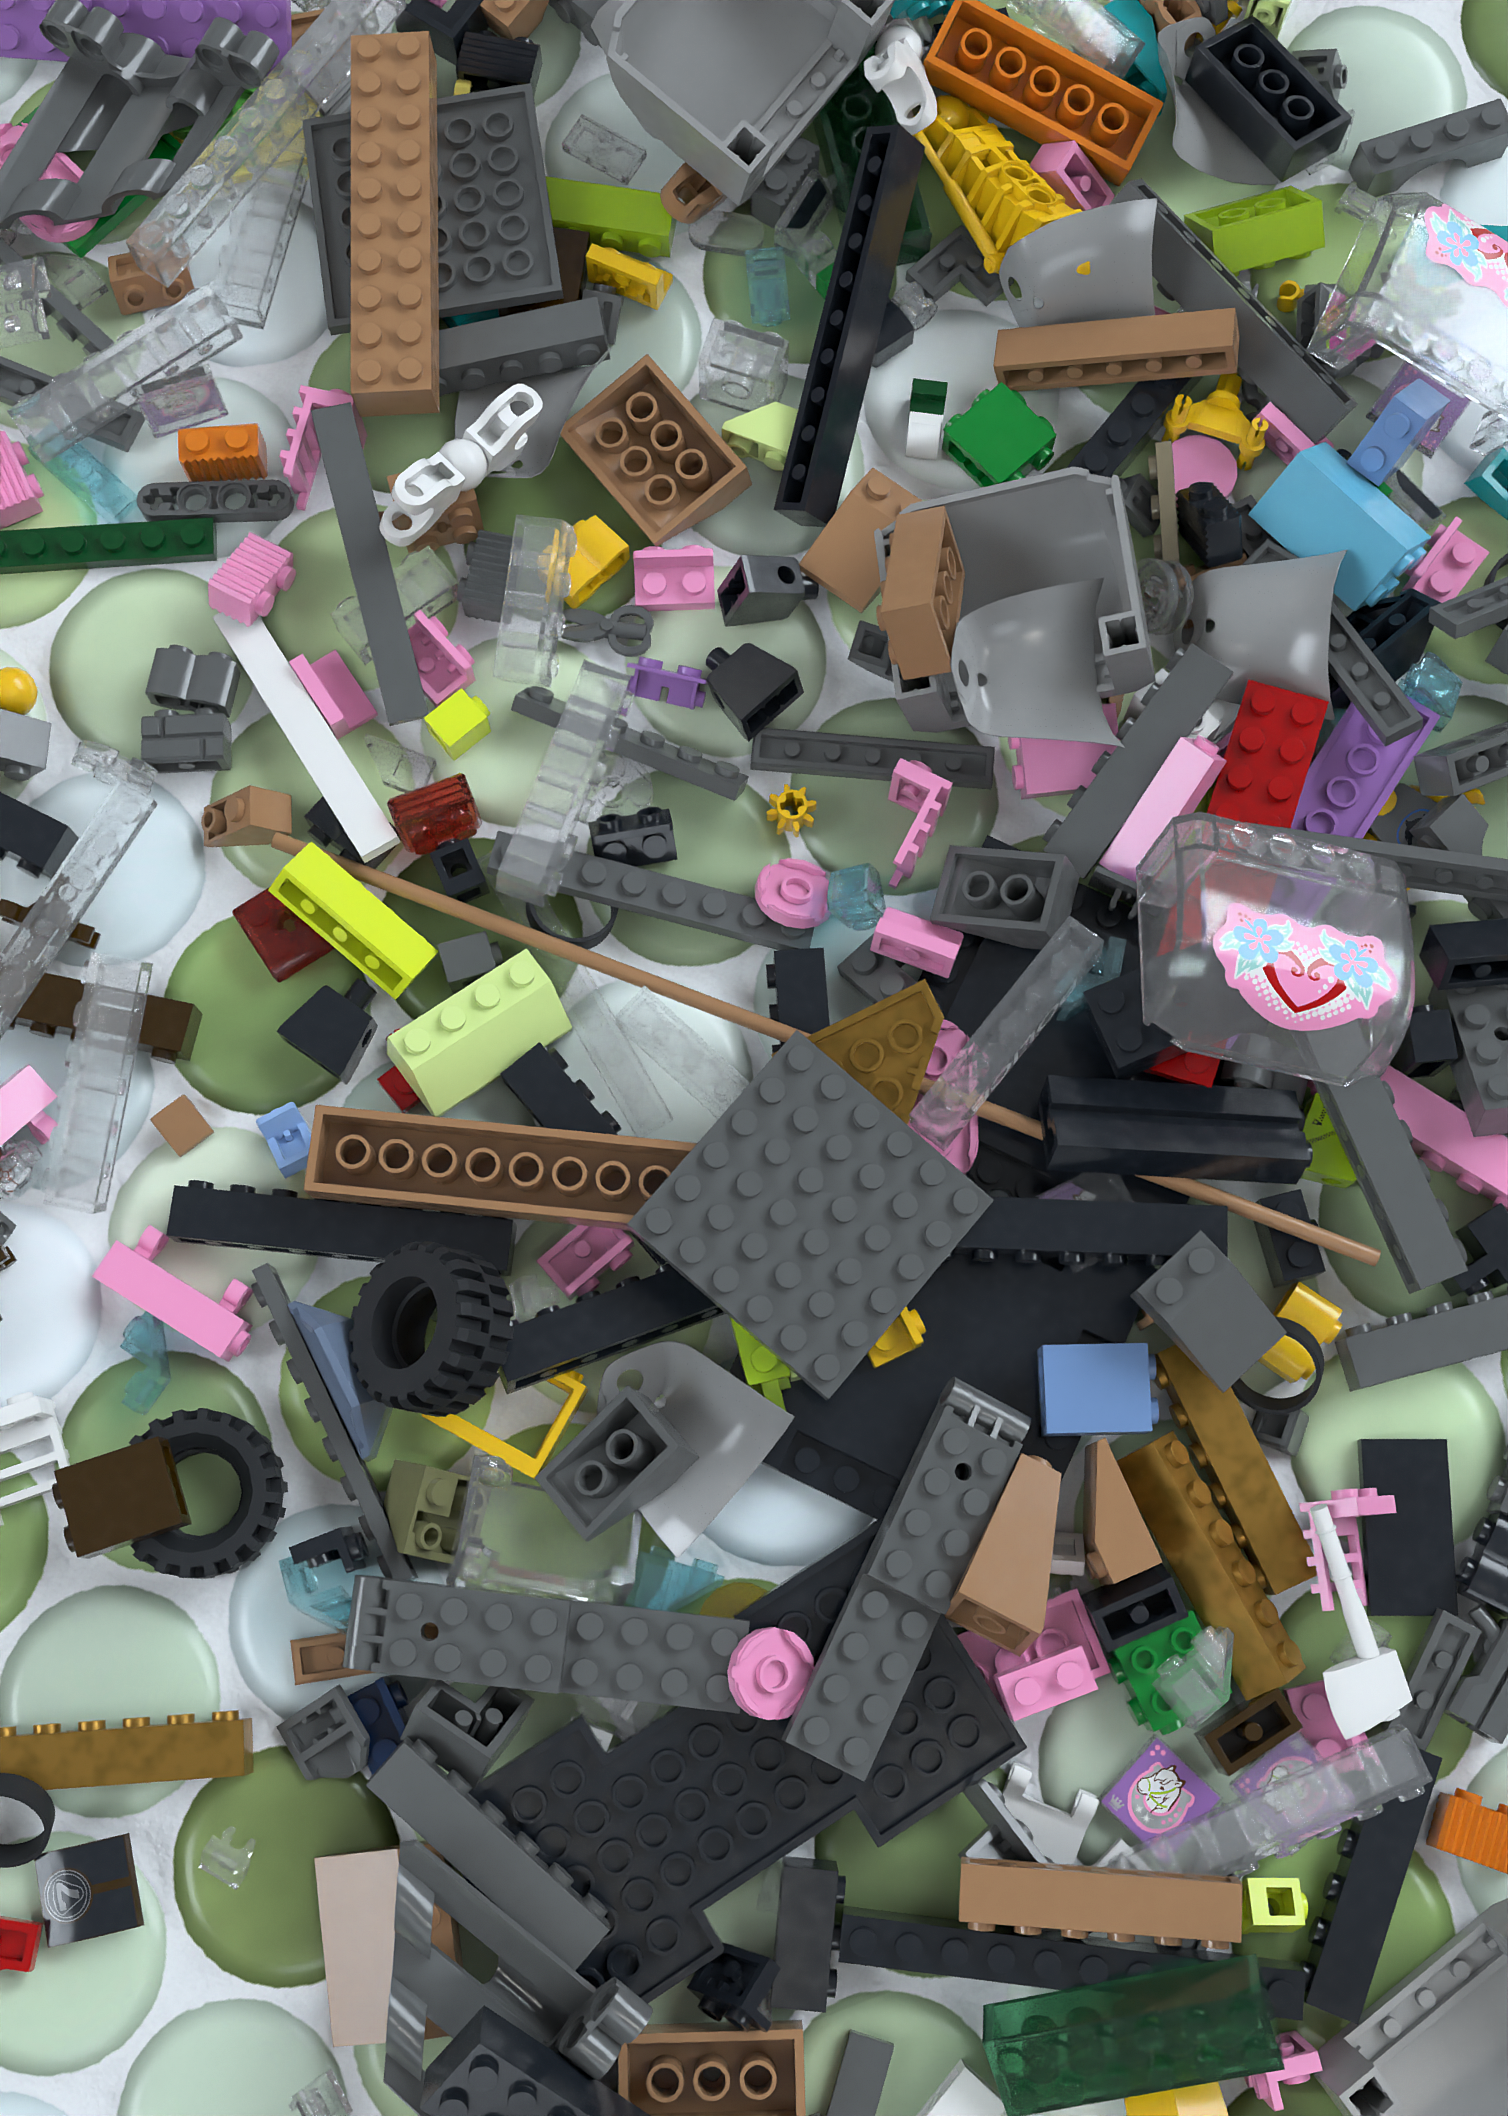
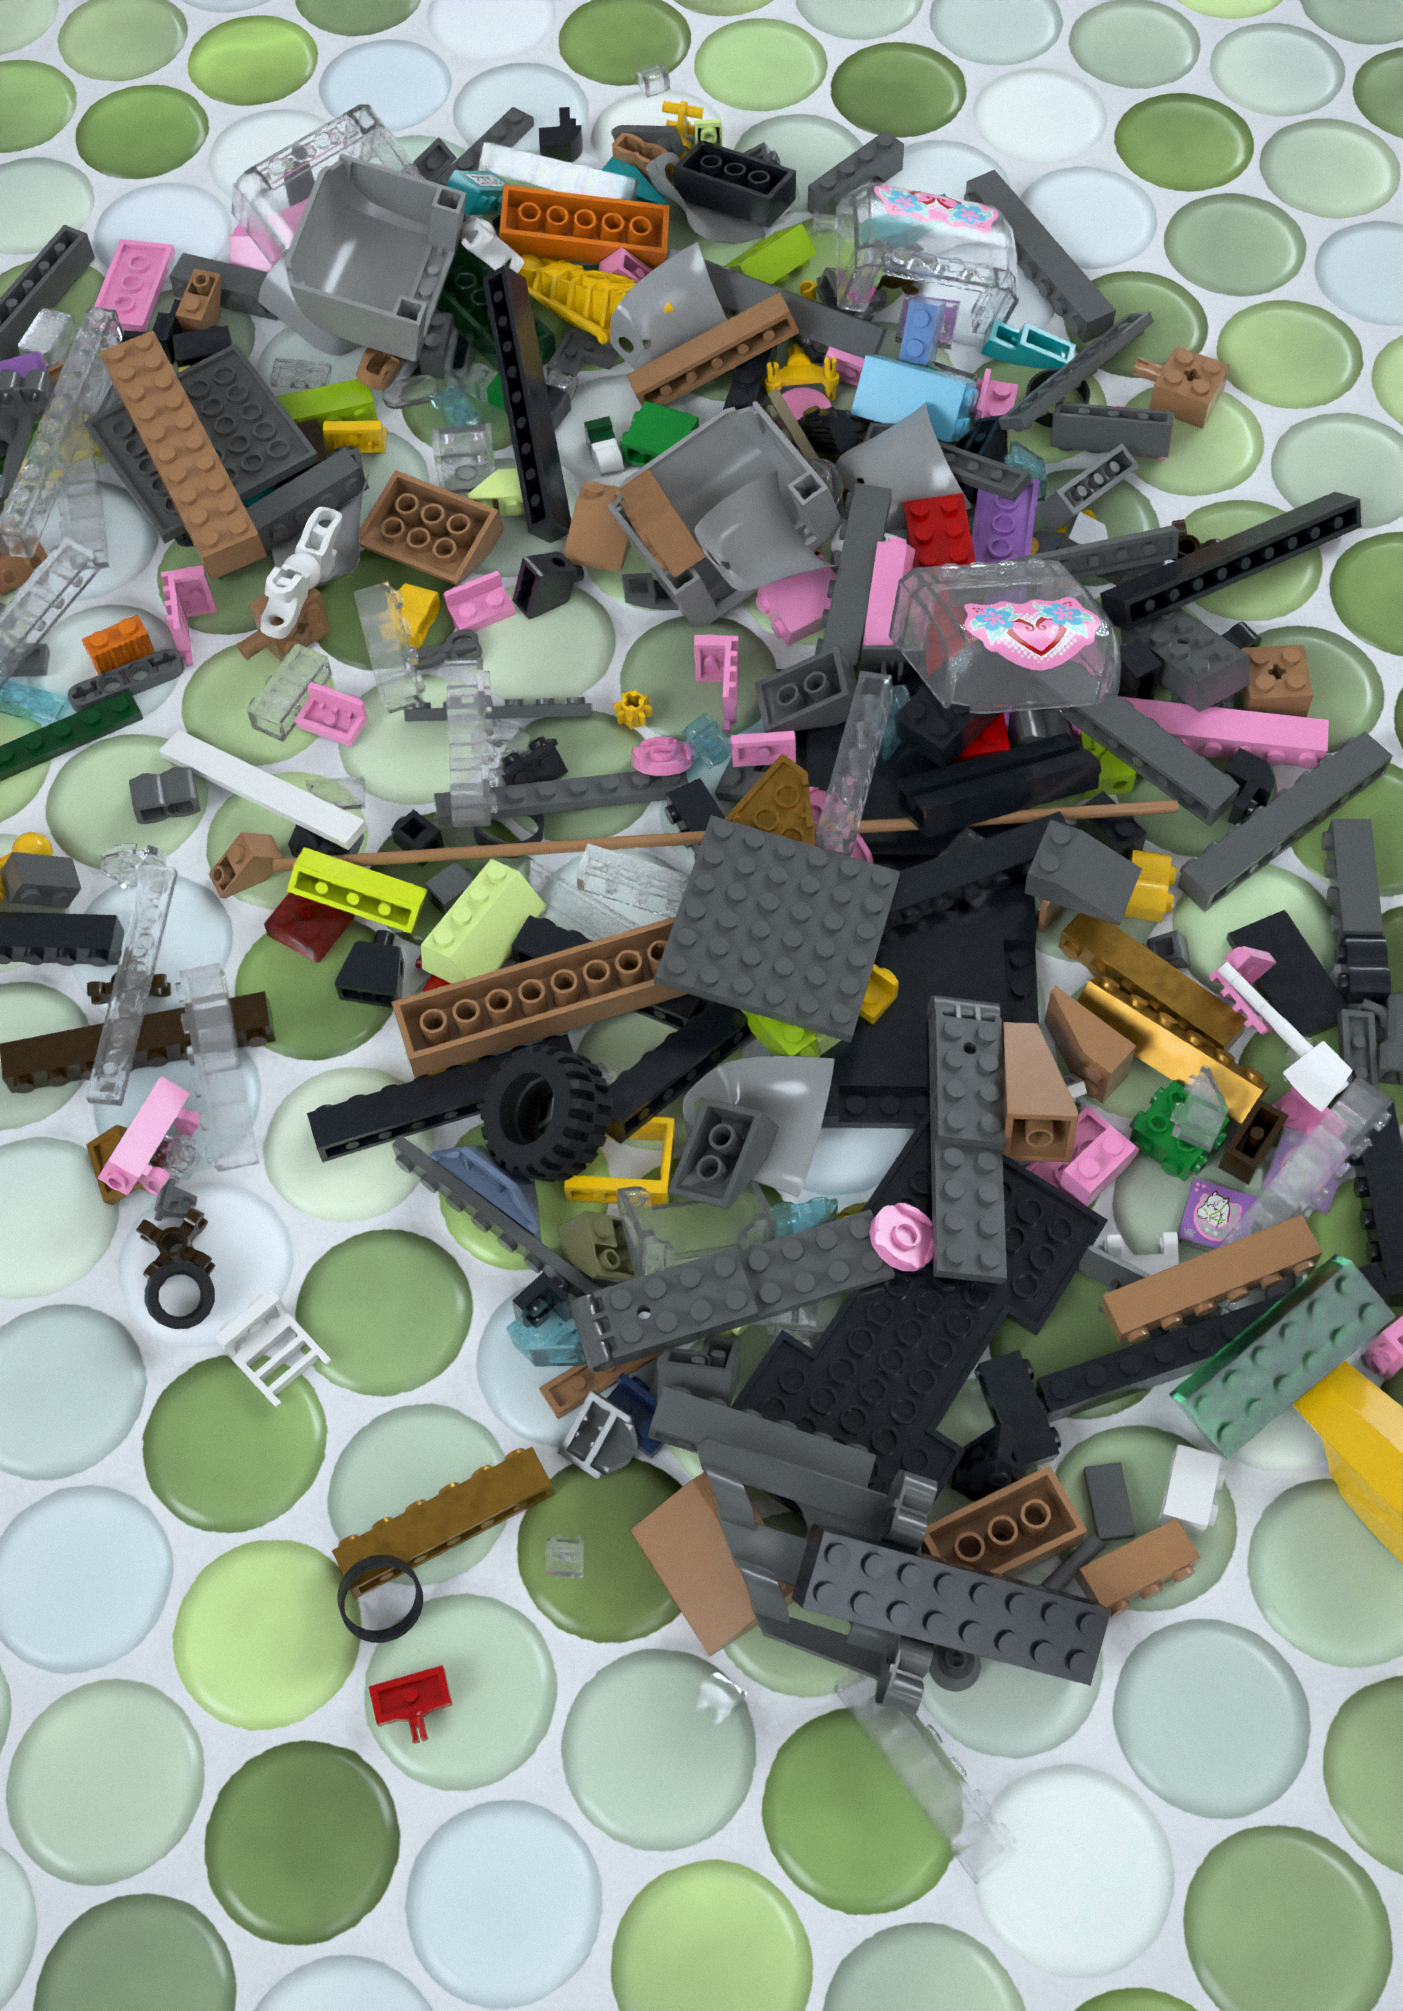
camera: 20 degrees left, 15 degrees down
(88, 1890) = (469, 1627): black slope -> none
(120, 1498) = (369, 1324): dark brown brick -> none
(147, 1343) = (337, 1237): clear light blue slope -> none
(172, 1300) = (340, 1194): bright pink brick -> none
(180, 401) = (72, 621): clear tile -> none
(182, 1125) = (290, 1080): medium nougat slope -> none
(187, 741) = (179, 832): dark grey brick -> none
(251, 579) = (177, 713): bright pink brick -> none
(259, 1503) = (413, 1271): black tyre -> none
(287, 1138) = (375, 1054): light blue bracket -> none
(334, 692) = (271, 761): bright pink panel -> none
(369, 564) = (262, 666): dark grey tile -> none
(435, 814) = (383, 802): clear red brick -> none
(458, 723) = (370, 747): neon yellow brick -> none
(485, 584) = (350, 650): dark grey brick -> none
(584, 1256) = (630, 1039): bright pink bracket -> none
(682, 685) = (516, 662): medium lavender hinge -> none
(751, 686) = (567, 644): black torso -> none
(868, 756) = (660, 662): dark grey tile -> none
(1096, 1389) = (1030, 966): medium blue brick -> none
(1134, 1607) = (1133, 1095): black brick -> none
(1285, 1897) = (1336, 1240): neon yellow brick -> none
(1286, 1405) = (1145, 938): black tyre -> none

